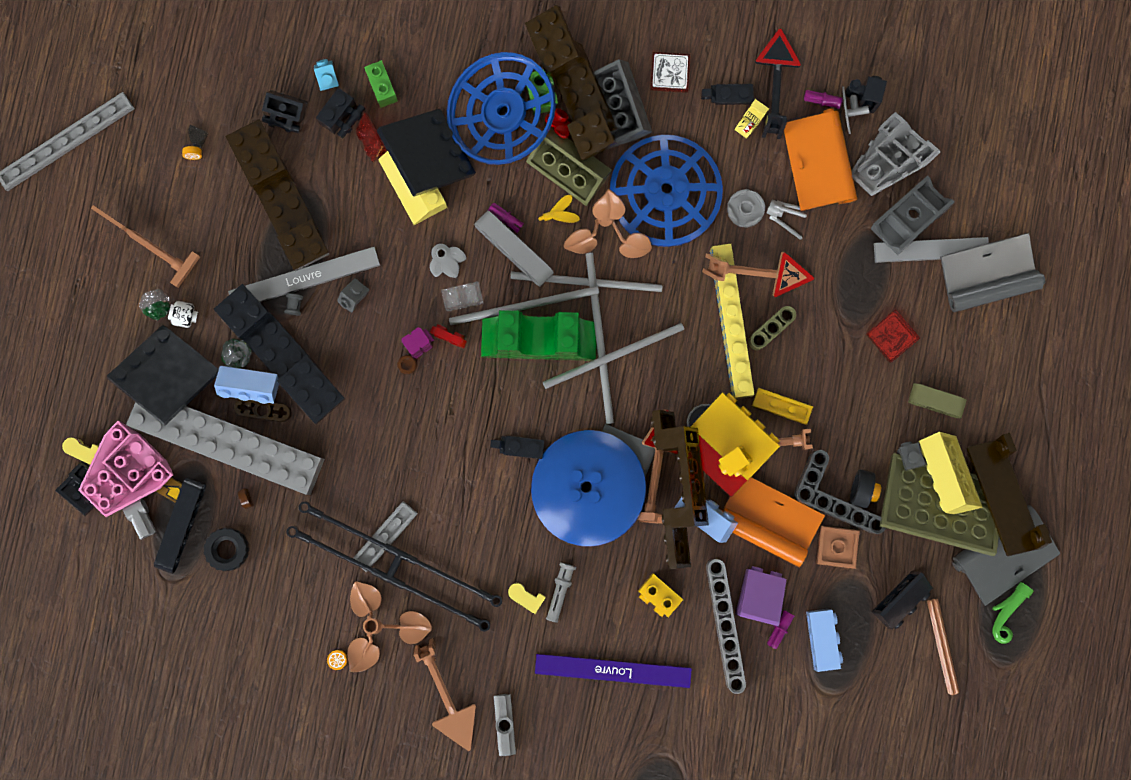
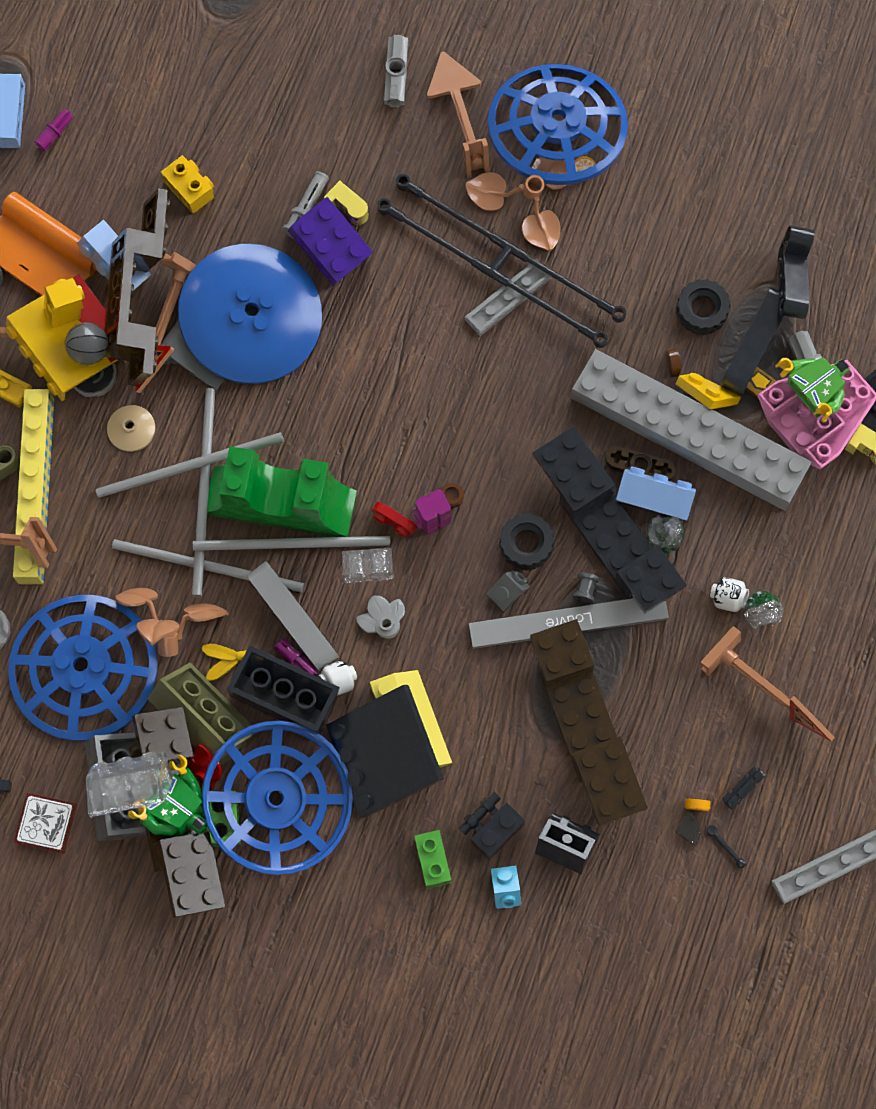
camera: 165 degrees left, 10 degrees down
(123, 484) = (816, 383): none -> bright green torso
(153, 583) = (793, 272): none -> black beam
(159, 171) = (743, 787): none -> black axle
(163, 375) = (759, 517): black plate -> none
(180, 138) = (712, 831): none -> black hinge
(215, 475) = (707, 392): none -> yellow wing
(340, 320) = (534, 524): none -> black tyre
(367, 684) = (556, 131): none -> blue dish
(370, 138) = (455, 778): clear red hinge -> none
(472, 207) = (339, 675): none -> white head
(510, 187) = (283, 690): none -> black slope
(519, 447) = (327, 377): black hinge -> none
(533, 557) = (329, 241): none -> dark purple brick
(573, 84) = (180, 808): none -> green torso
(607, 86) = (128, 783): none -> clear slope
(613, 670) = (260, 113): dark purple tile -> none
(659, 390) = (136, 437): none -> tan dish
(710, 431) = (86, 343): none -> dark grey piece
(731, 633) = (119, 151): light grey beam -> none
(761, 596) = (68, 162): medium lavender slope -> none

